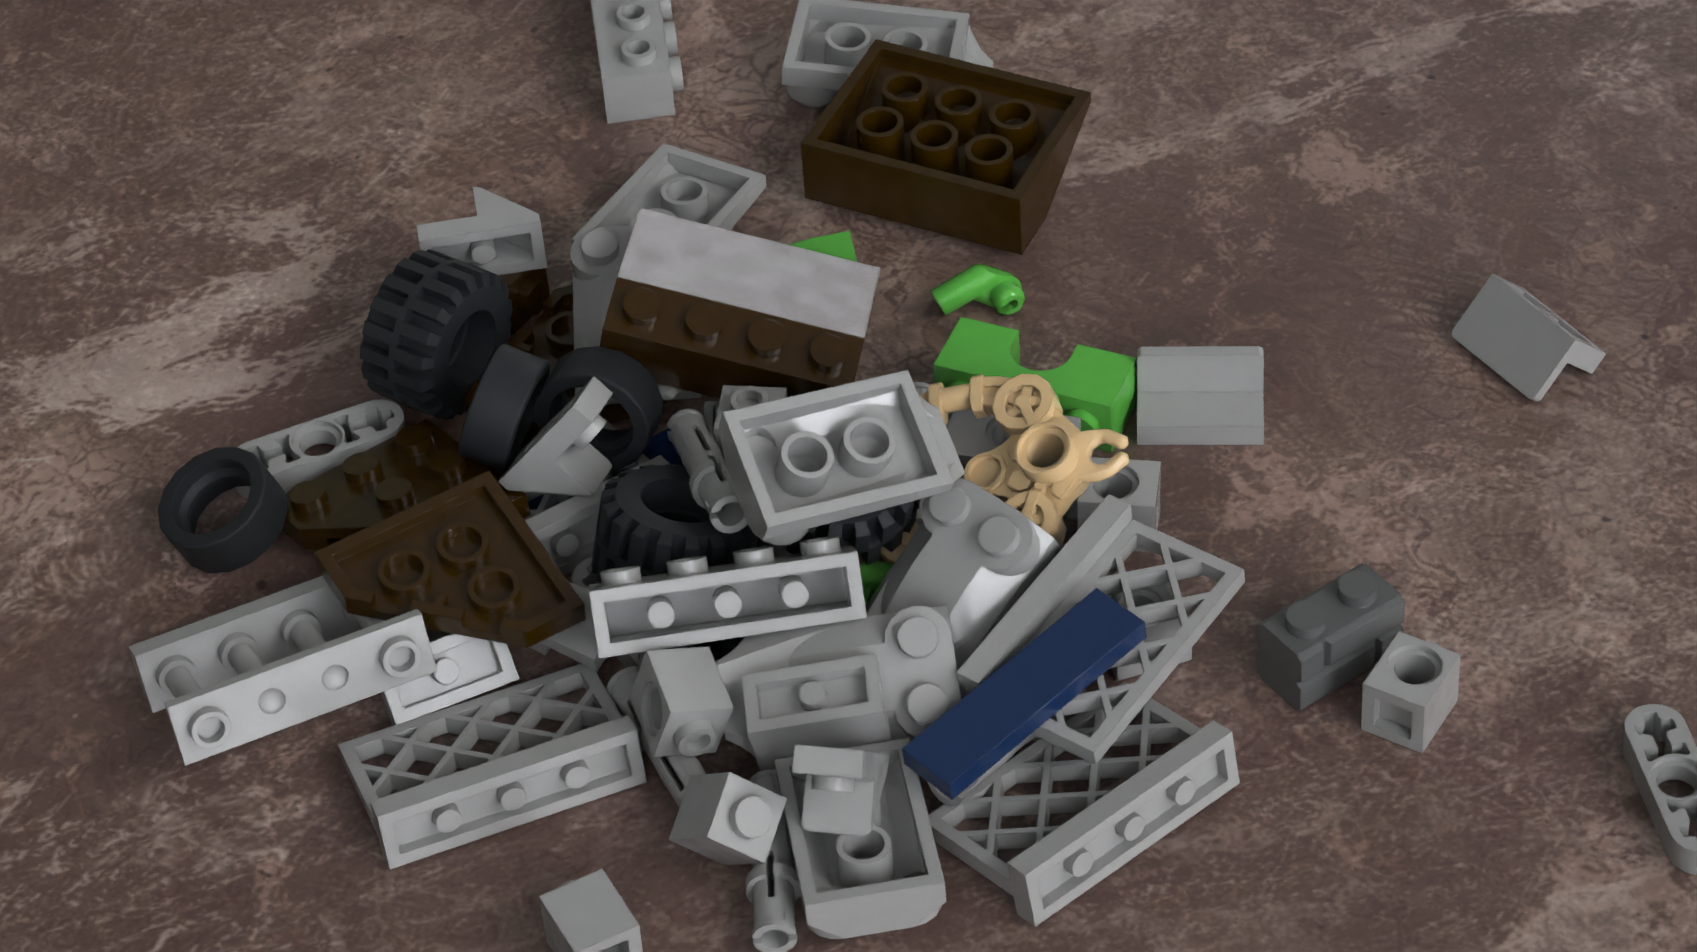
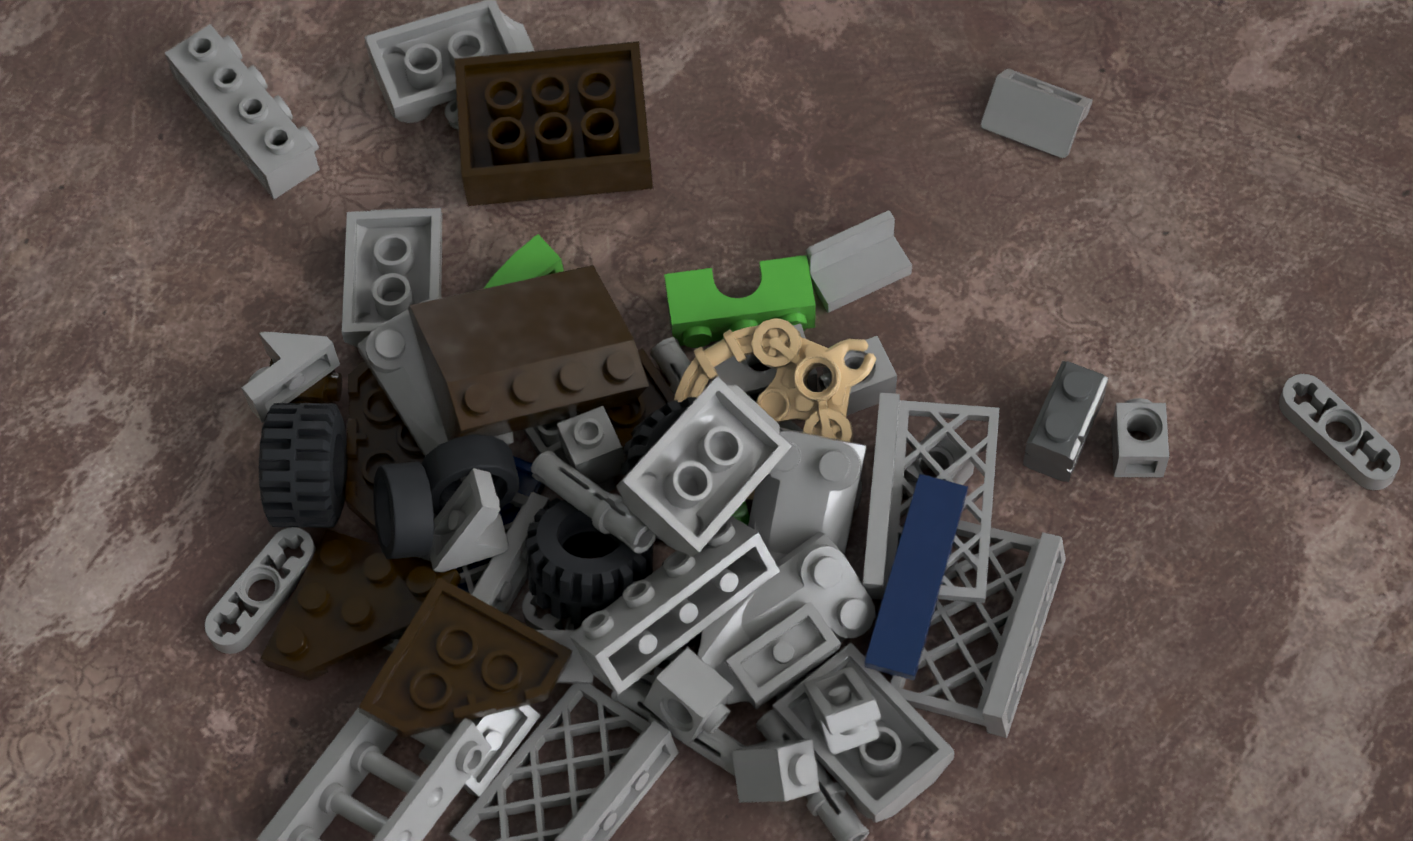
camera: 30 degrees left, 20 degrees up
(200, 483) = (199, 676): black tyre -> none
(981, 284) = (645, 230): bright green arm -> none

